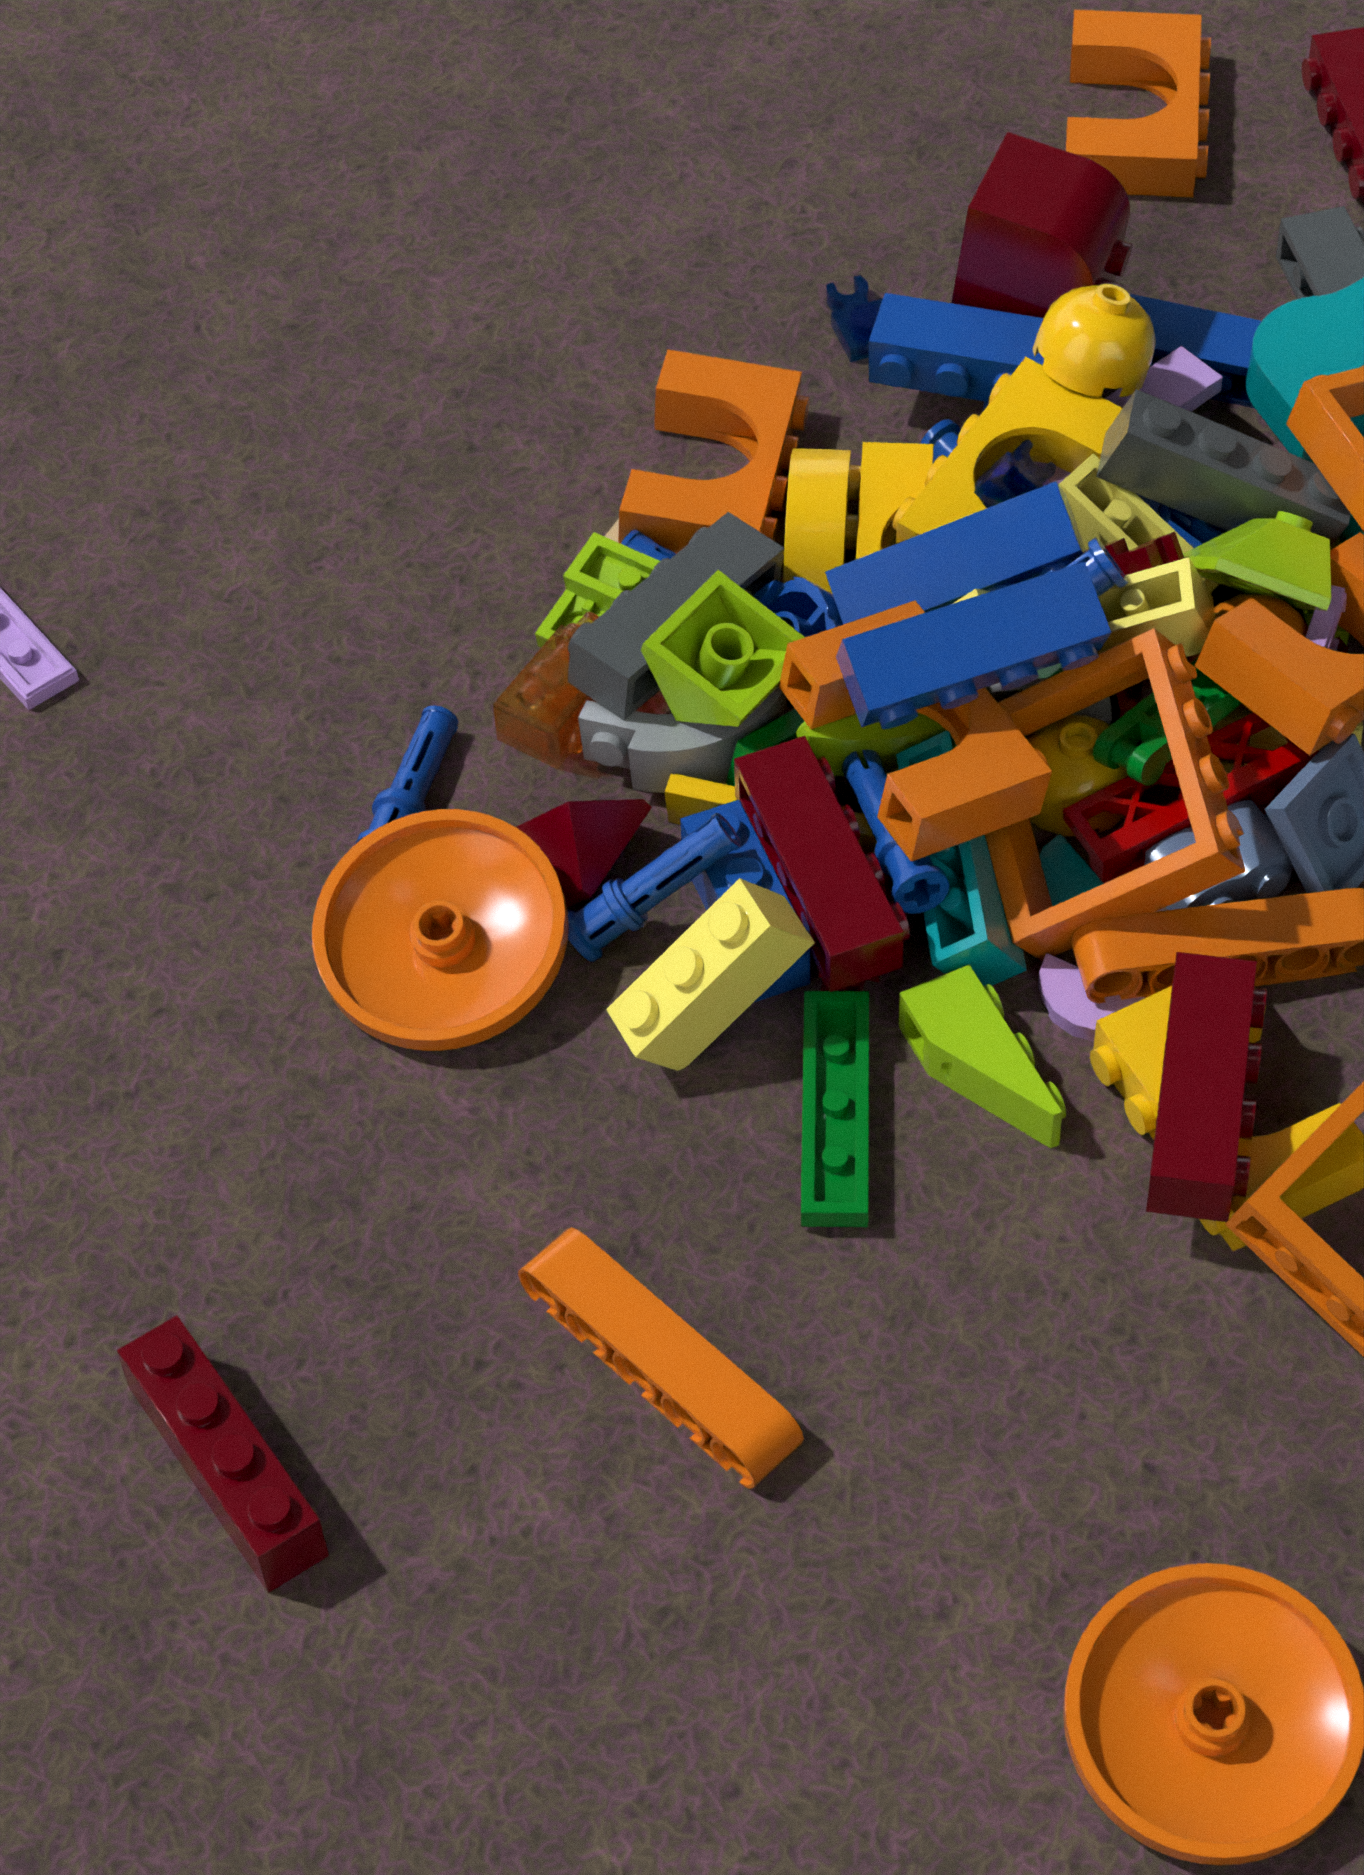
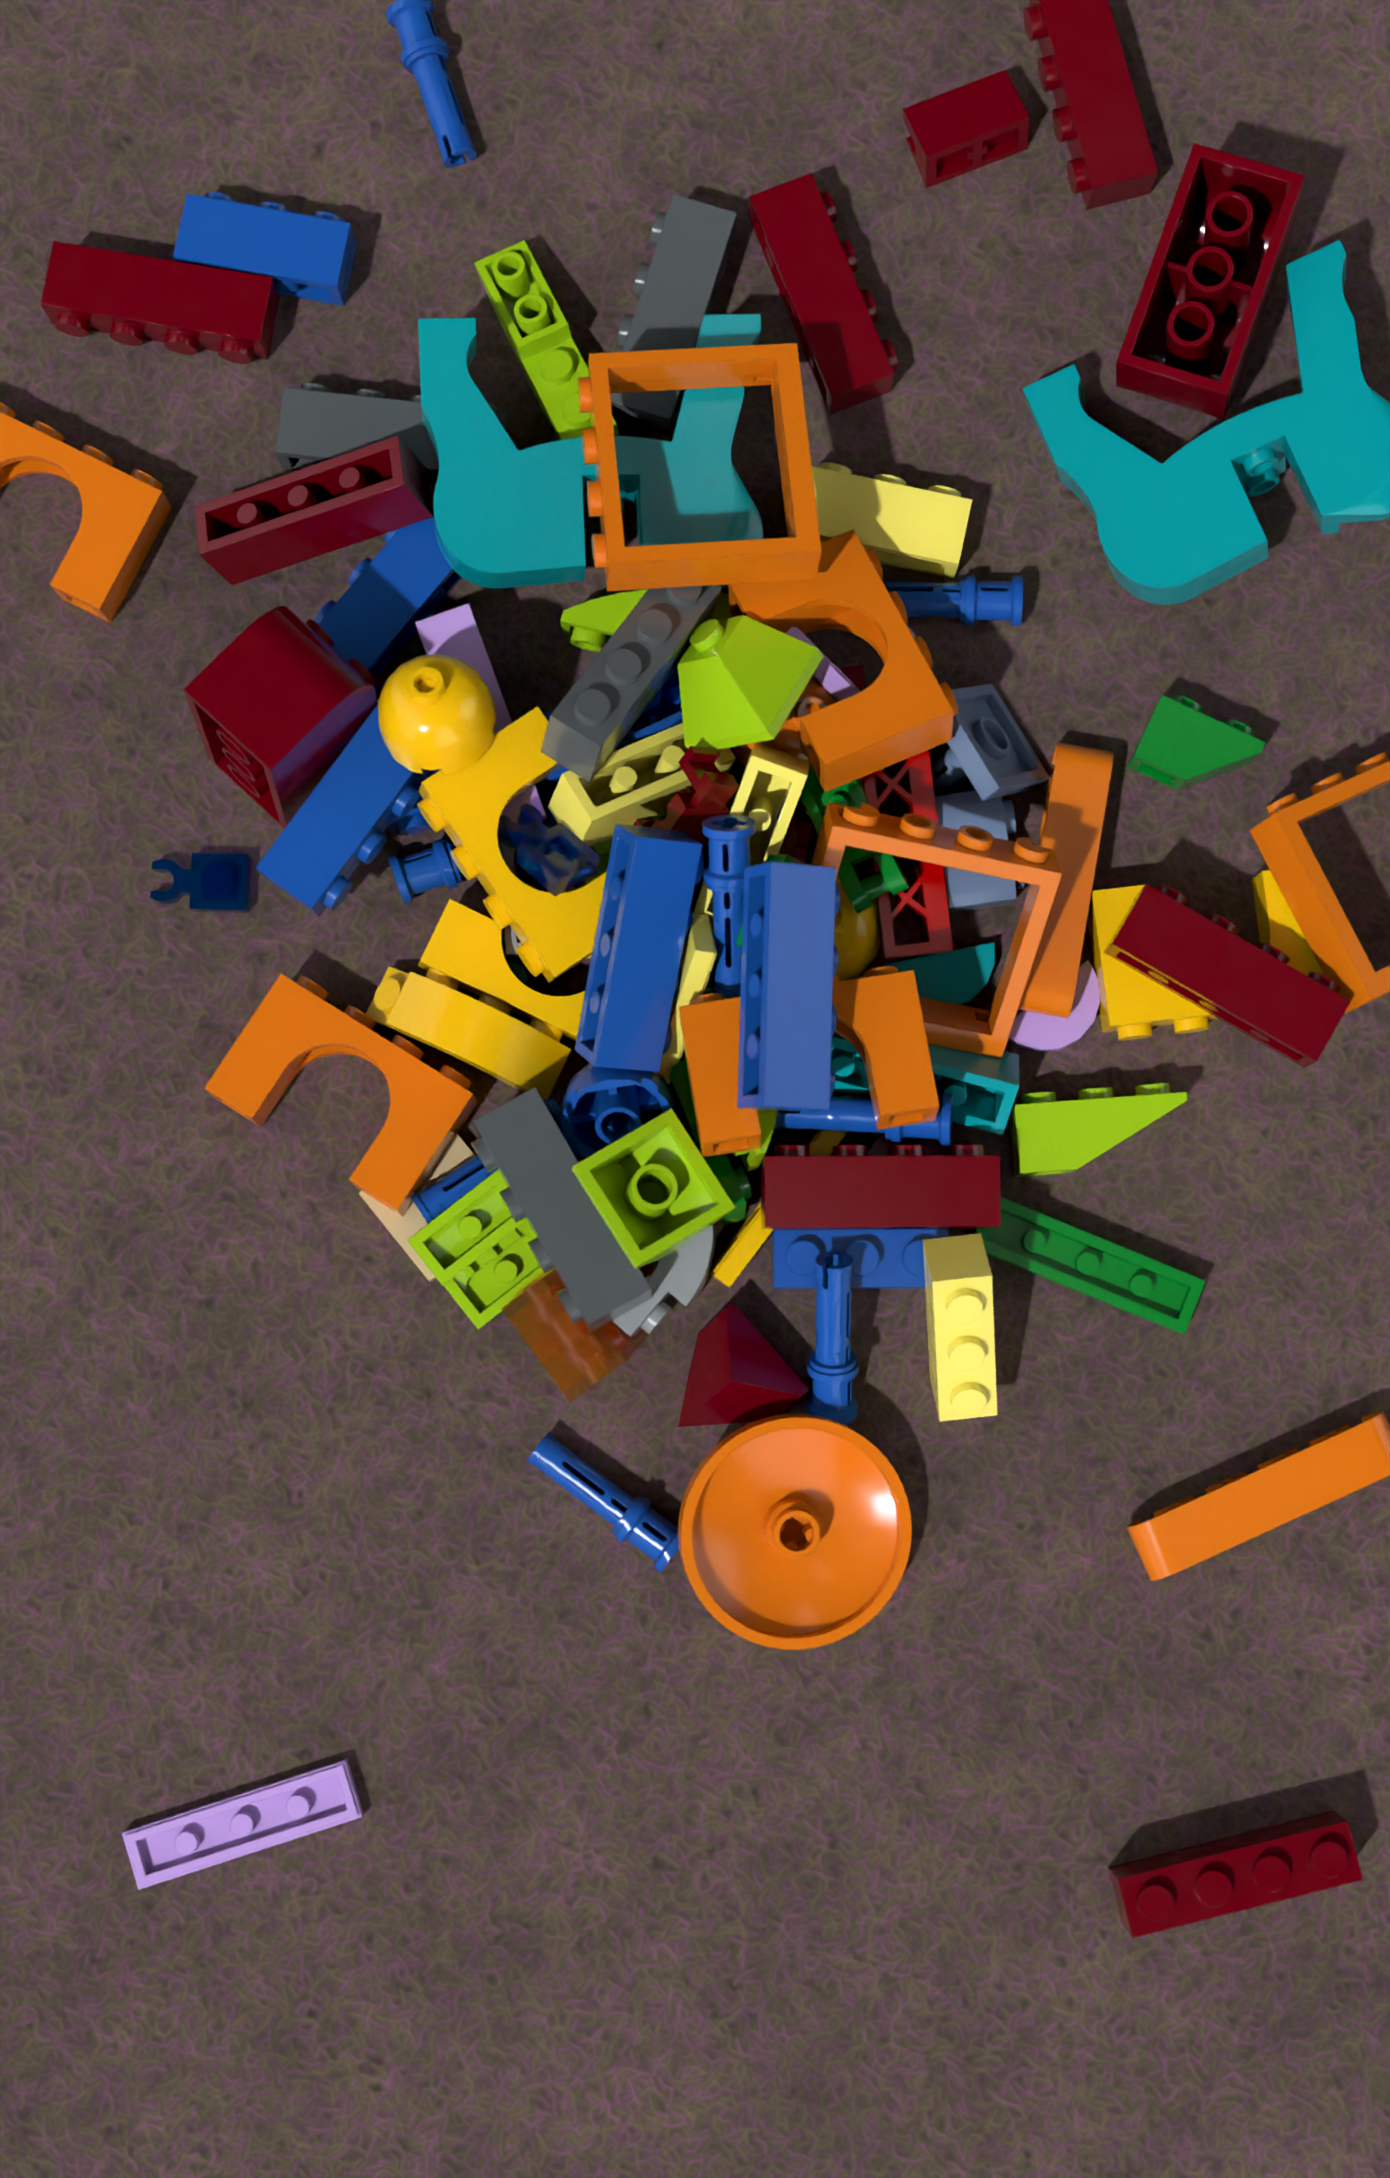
camera: 70 degrees left, 30 degrees up
(1237, 248) = (313, 511): none -> dark red brick

